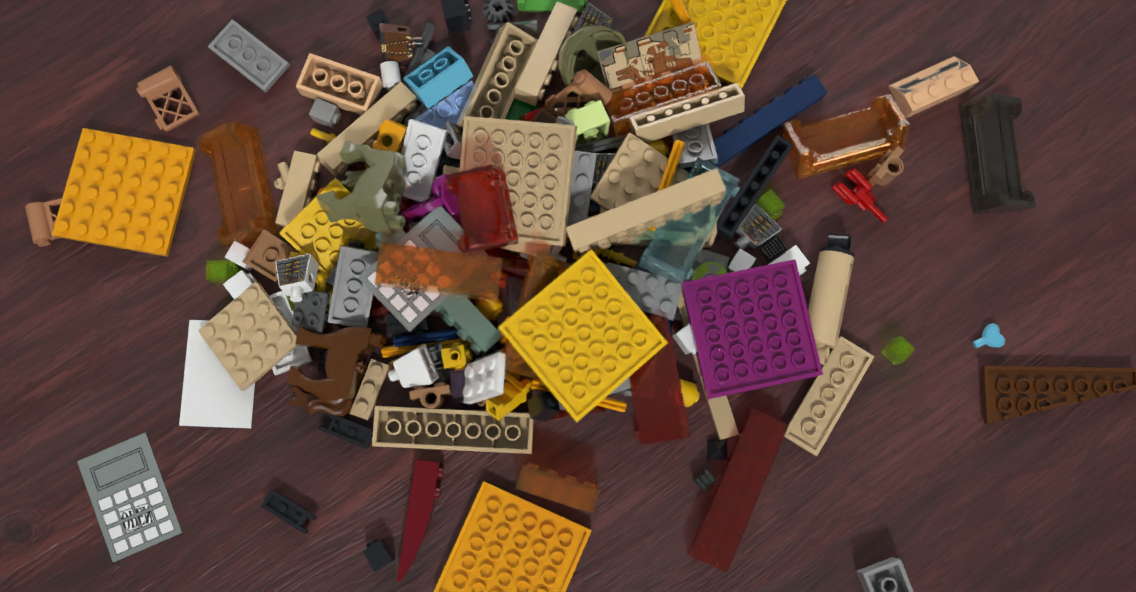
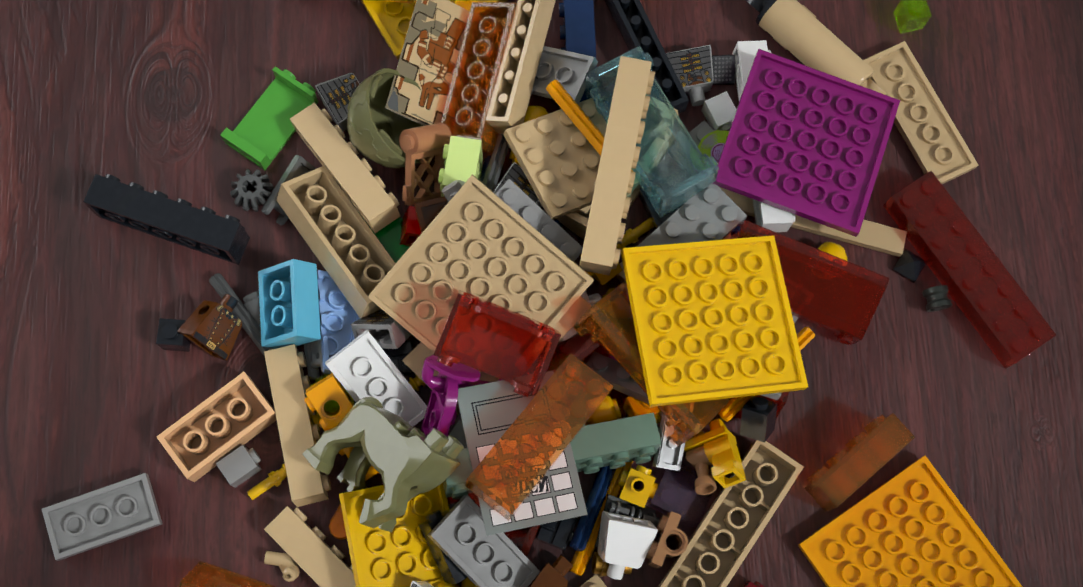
camera: 60 degrees left, 5 degrees down
(390, 74) = (245, 360): white brick -> none
(484, 378) = (692, 462): white plate -> none
(771, 204) = (675, 38): clear neon green brick -> none

